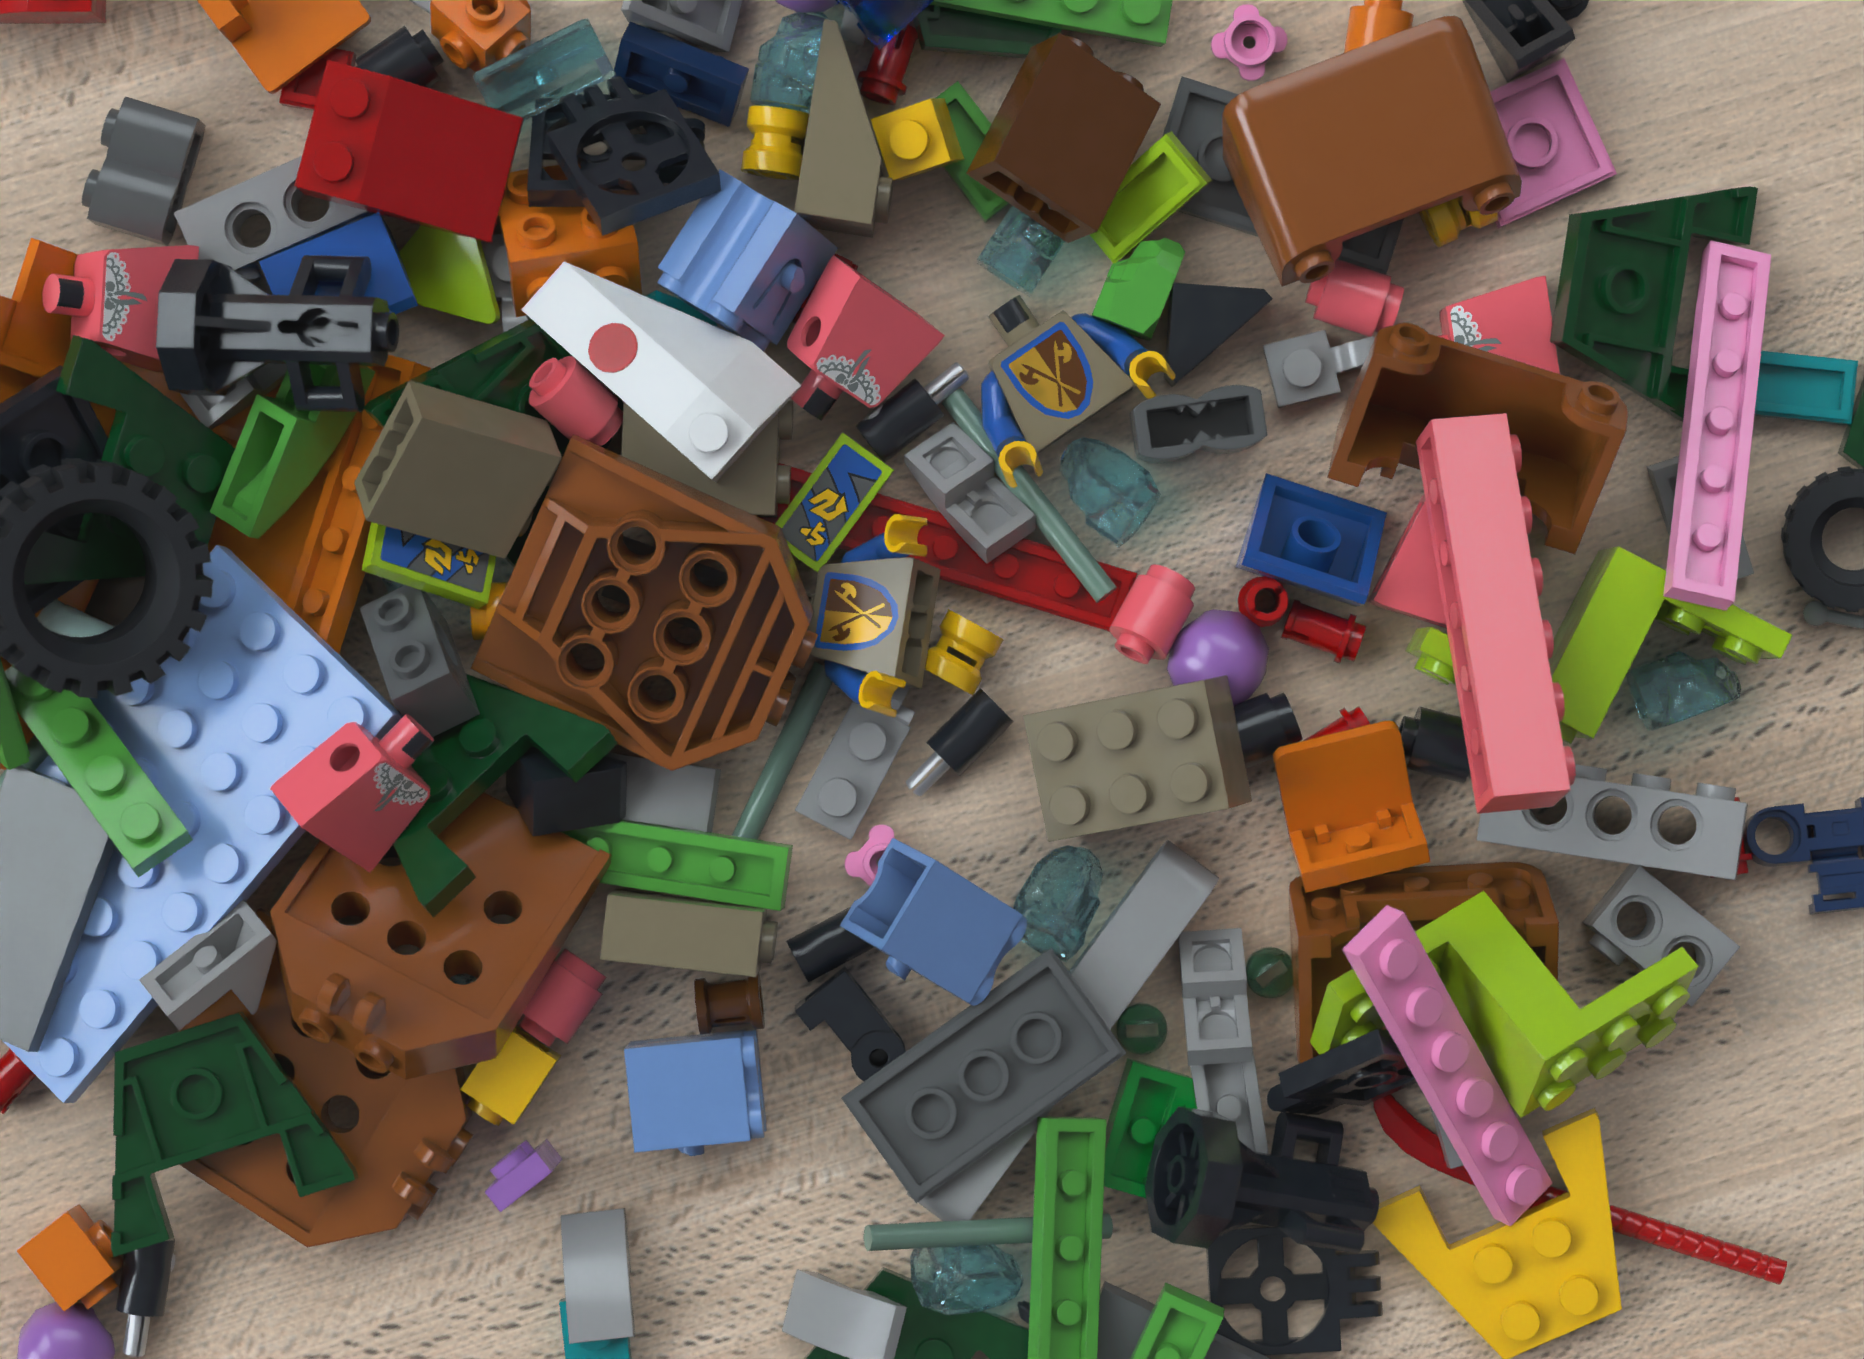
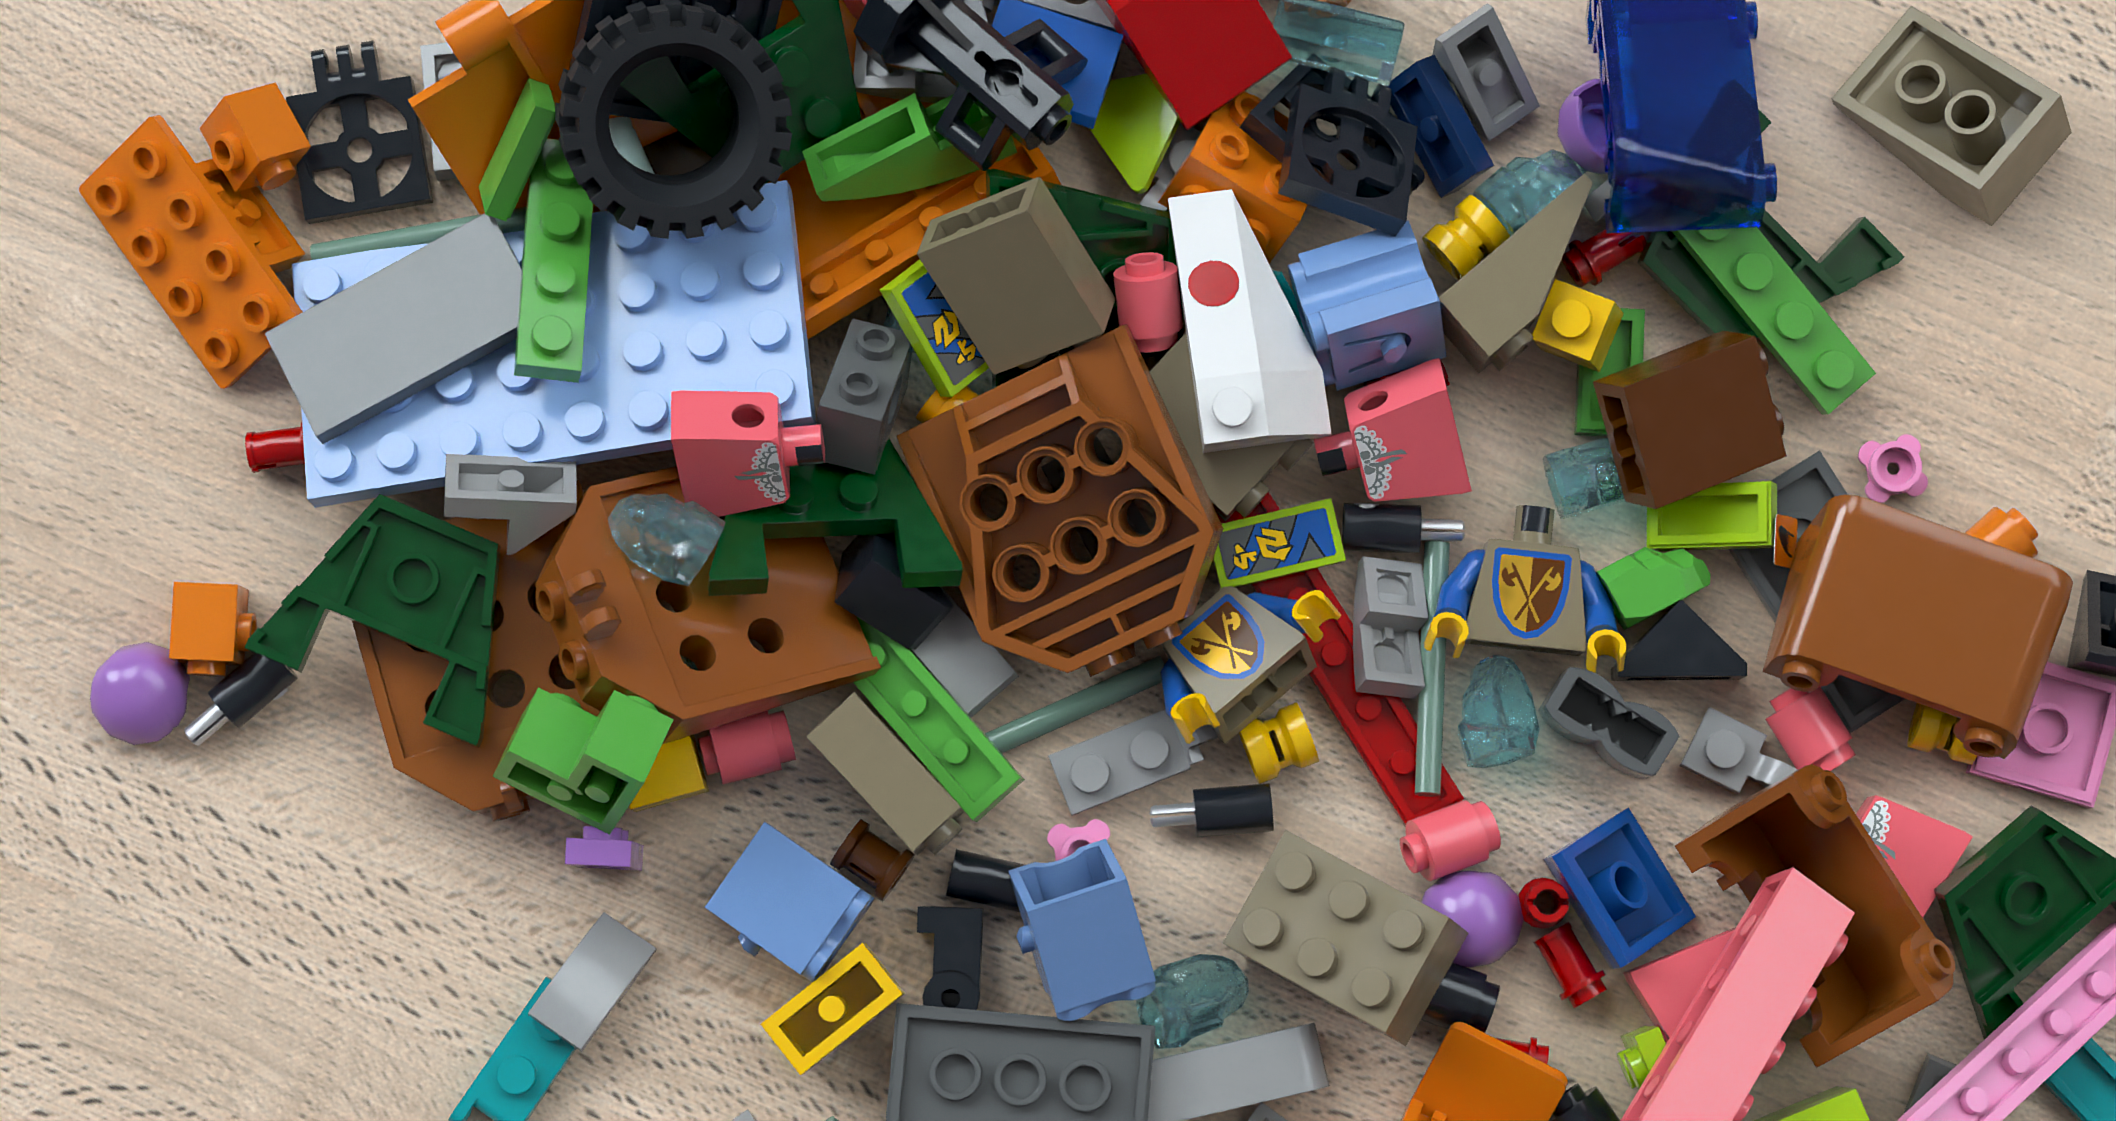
camera: 45 degrees right, 5 degrees down
(360, 899) = (665, 535): none -> clear light blue rock
(443, 1125) = (581, 759): none -> bright green brick
(796, 1142) = (832, 1008): none -> yellow brick
(1214, 169) = (1785, 540): none -> orange sticker

